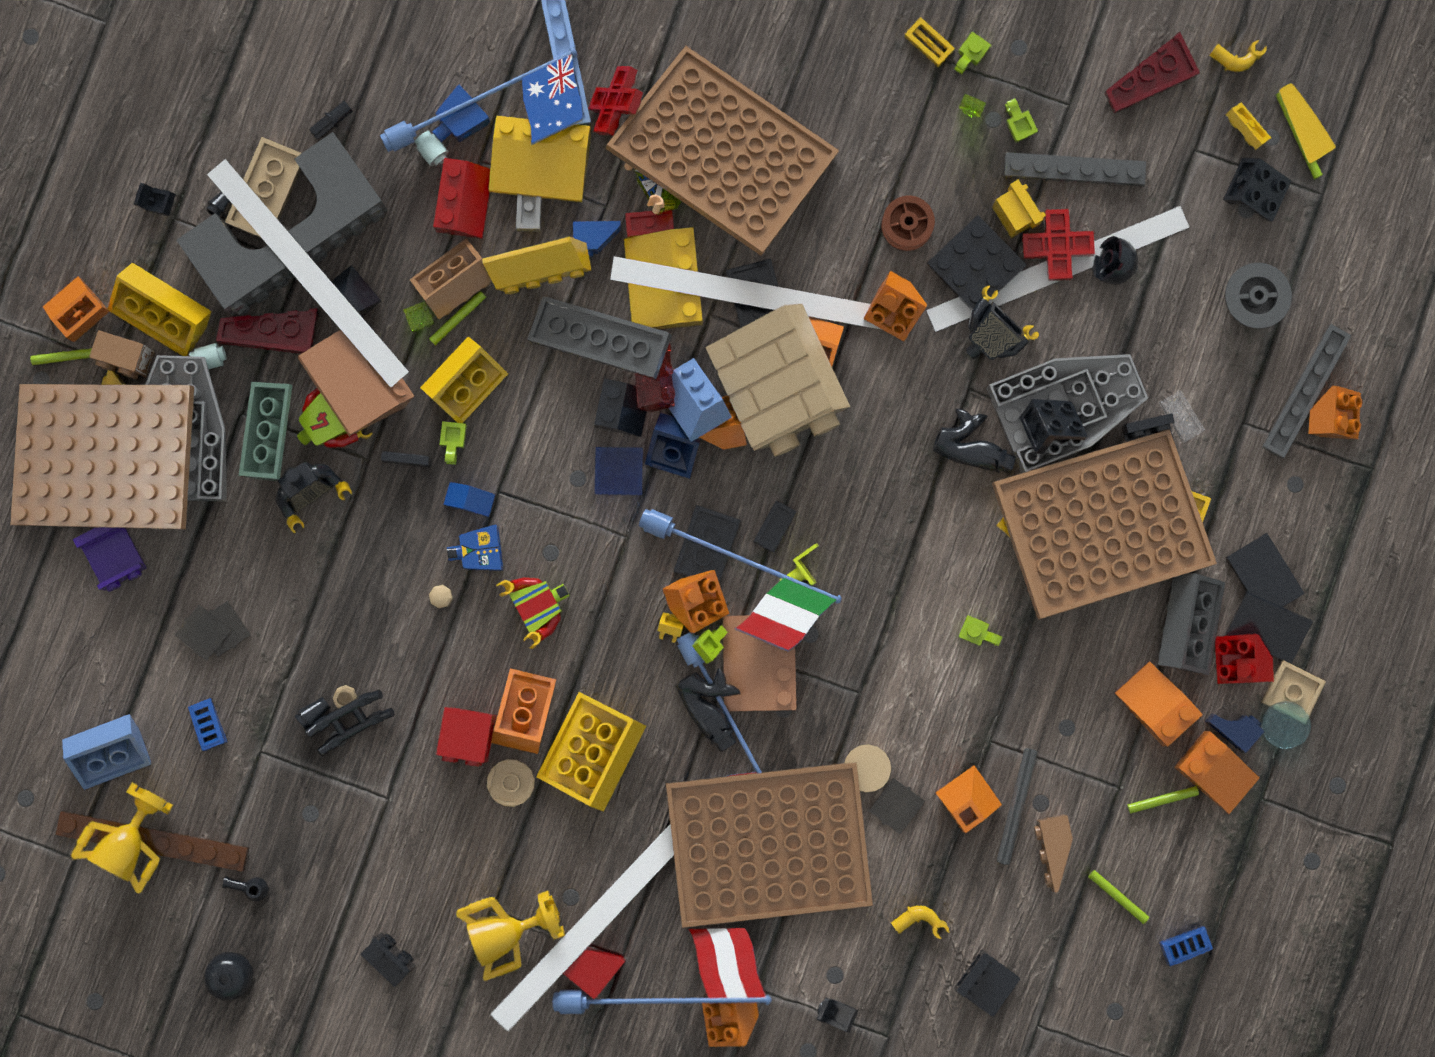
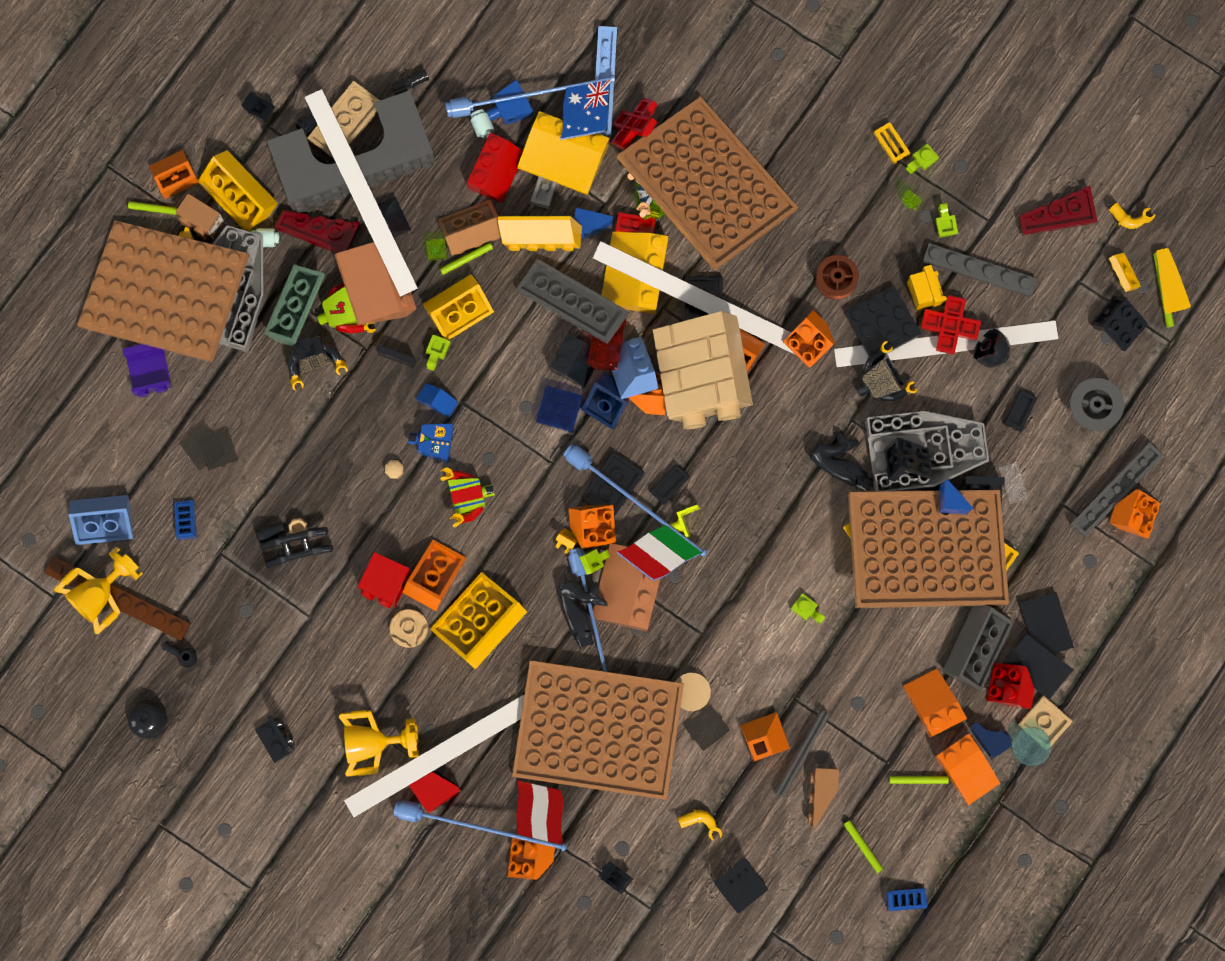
camera: 15 degrees right, 5 degrees down
(1117, 458) = (952, 501): none -> blue slope
(1167, 326) = (1020, 411): none -> black tile

